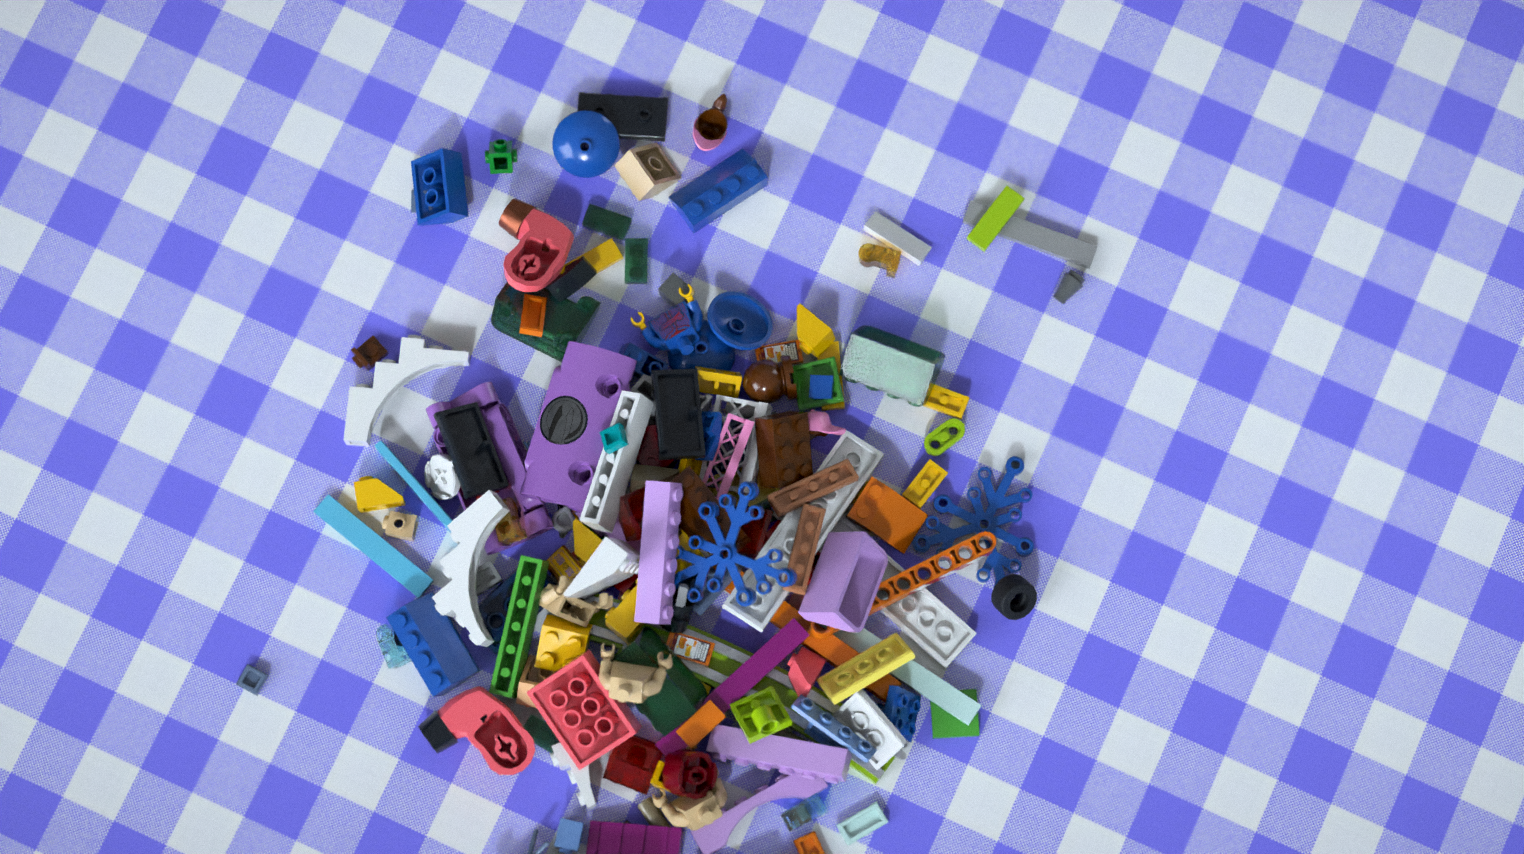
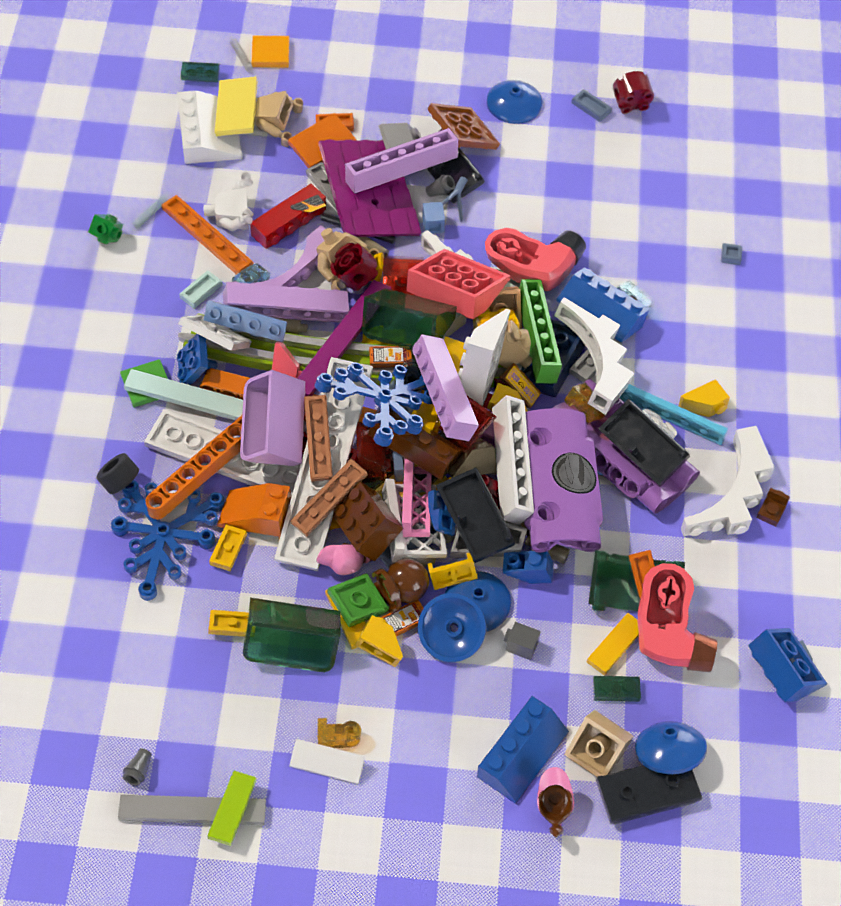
camera: 160 degrees right, 20 degrees down
(373, 546) = (687, 367): medium azure tile -> none
(406, 531) = (673, 384): tan brick -> none
(501, 156) = (745, 708): green brick -> none
(574, 278) = (623, 616): black slope -> none
(614, 438) = (522, 465): teal tile -> none
(631, 681) = (428, 290): tan torso -> none
(636, 260) = (572, 658): clear green plate -> none
(676, 328) = (511, 600): blue torso -> none
(682, 595) = (411, 373): light grey tile -> none
(700, 724) = (354, 307): orange tile -> none
(761, 714) = (310, 319): lime plate -> none
(821, 387) = (352, 590): blue tile -> none
(865, 668) = (231, 370): light yellow tile -> none
(943, 437) = (220, 593): lime plate -> none

